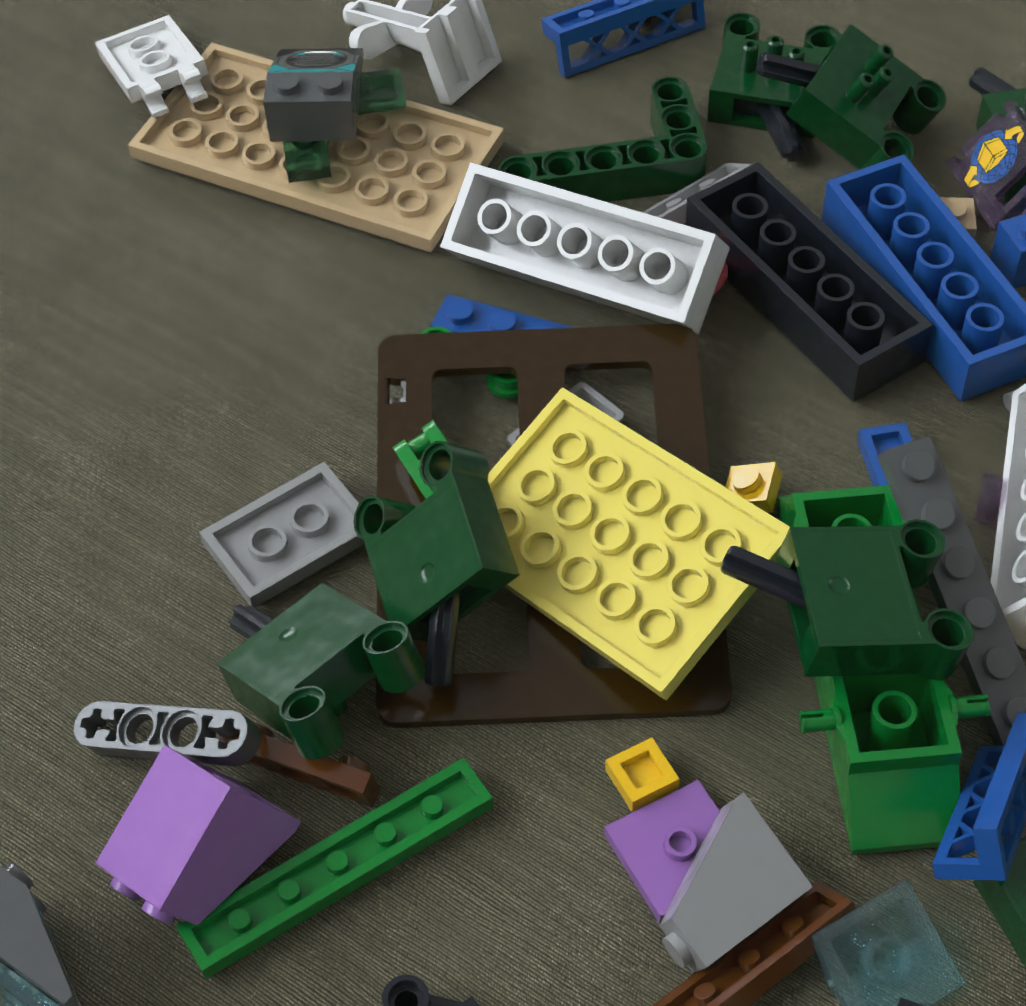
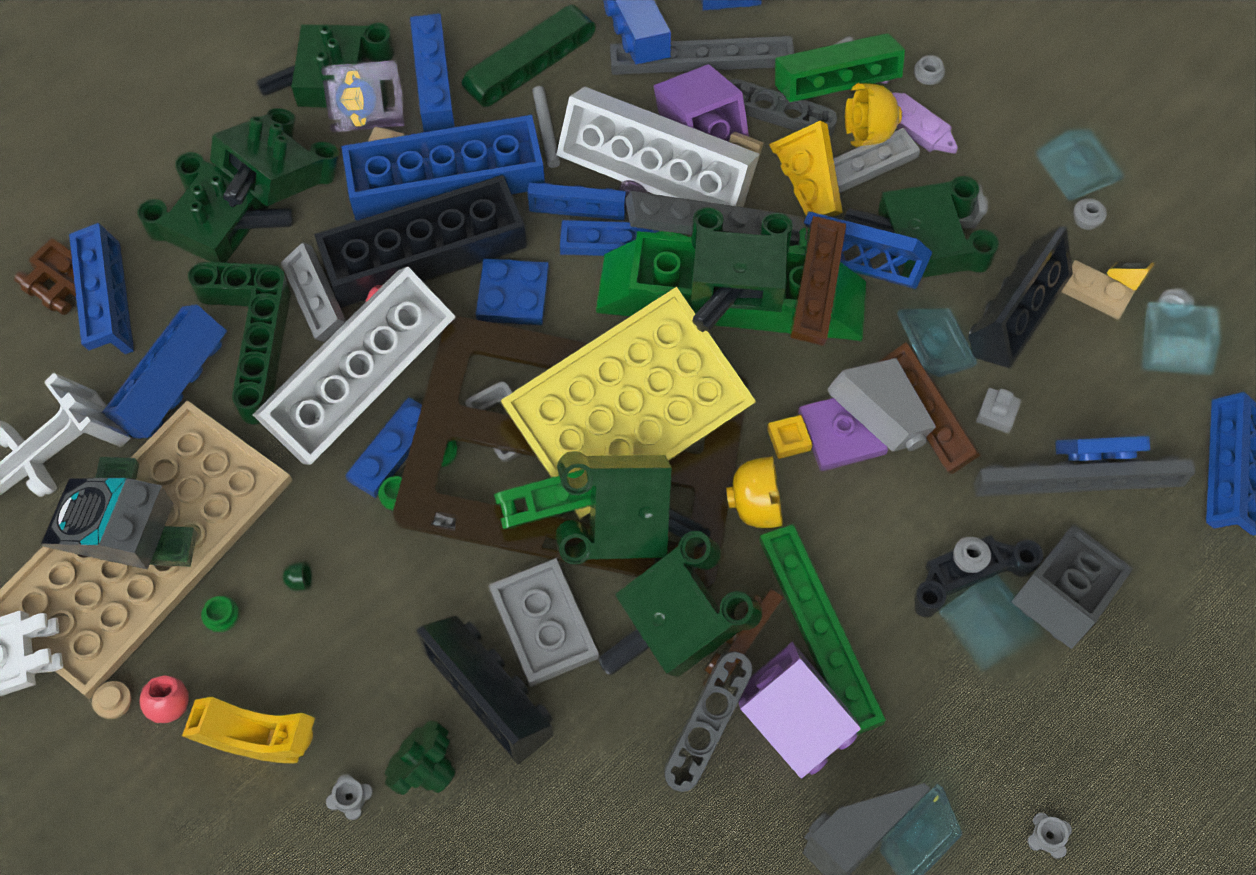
camera: 80 degrees left, 10 degrees up
(40, 397) = (344, 786): none -> light grey plate
(78, 446) = (421, 761): none -> dark green plant
(102, 282) = (248, 732): none -> yellow arch
(130, 174) = (111, 700): none -> tan plate
(131, 207) = (164, 699): none -> coral piece
(178, 480) = (486, 687): none -> black slope
(246, 230) = (220, 614): none -> green plate
(305, 287) = (298, 576): none -> dark green hinge
(525, 741) = (756, 494): none -> yellow cylinder
(532, 97) = (165, 372): none -> blue brick
(756, 483) = (586, 321): yellow plate -> none
(775, 402) = (512, 292): none -> blue plate
(885, 719) = (818, 281): none -> reddish brown plate
(949, 433) = (577, 201): none -> blue plate

